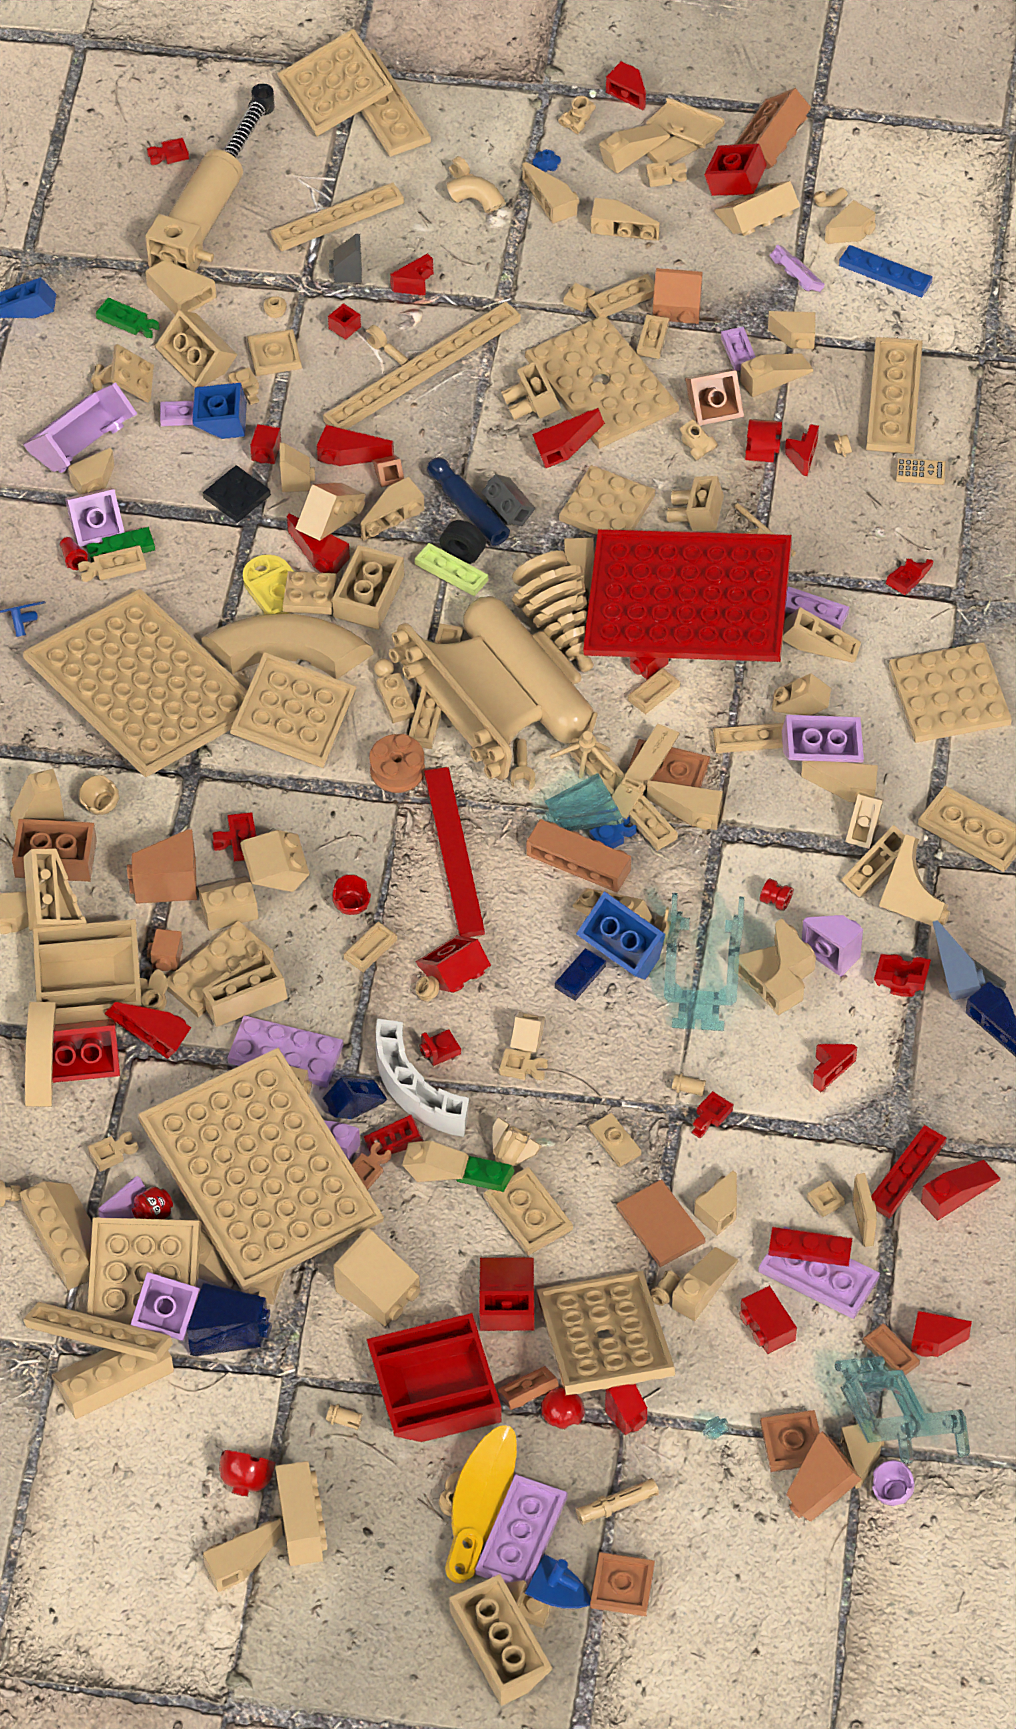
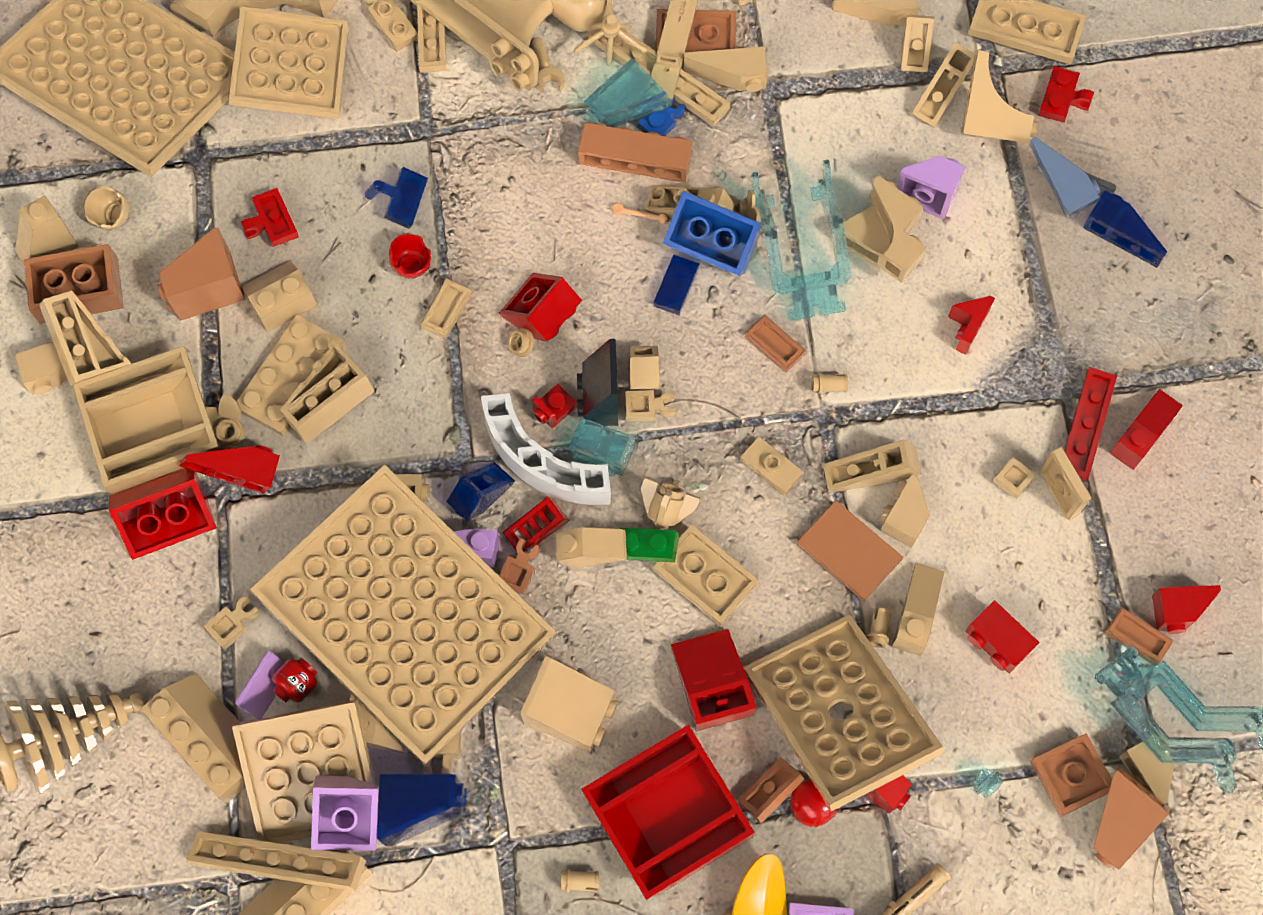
camera: 15 degrees left, 15 degrees up
(39, 1054) = (118, 530): tan slope -> none
(166, 950) = (227, 369): nougat brick -> none
(275, 860) = (317, 237): tan slope -> none
(299, 1047) = (404, 448): lavender plate -> none
(360, 846) = (404, 196): none -> clear blue plate
(397, 763) = (415, 95): nougat wheel -> none
(454, 852) = (504, 181): red tile -> none
(470, 1083) = (600, 446): none -> clear light blue brick
(484, 1038) = (599, 386): none -> black slope
(549, 900) = (618, 210): none -> light nougat hinge
(652, 1042) = (775, 343): none -> nougat tile
(703, 1159) = (873, 467): none -> tan slope
(711, 1111) = (865, 408): red plate -> none
(776, 894) = (851, 145): red wheel -> none
(810, 1246) = (1020, 540): red plate -> none
(832, 1285) = (1035, 565): lavender plate -> none
(893, 1483) = (1199, 800): lavender hair -> none
(902, 976) = (1012, 204): red cylinder -> none
(987, 894) = (1062, 94): none -> red plate

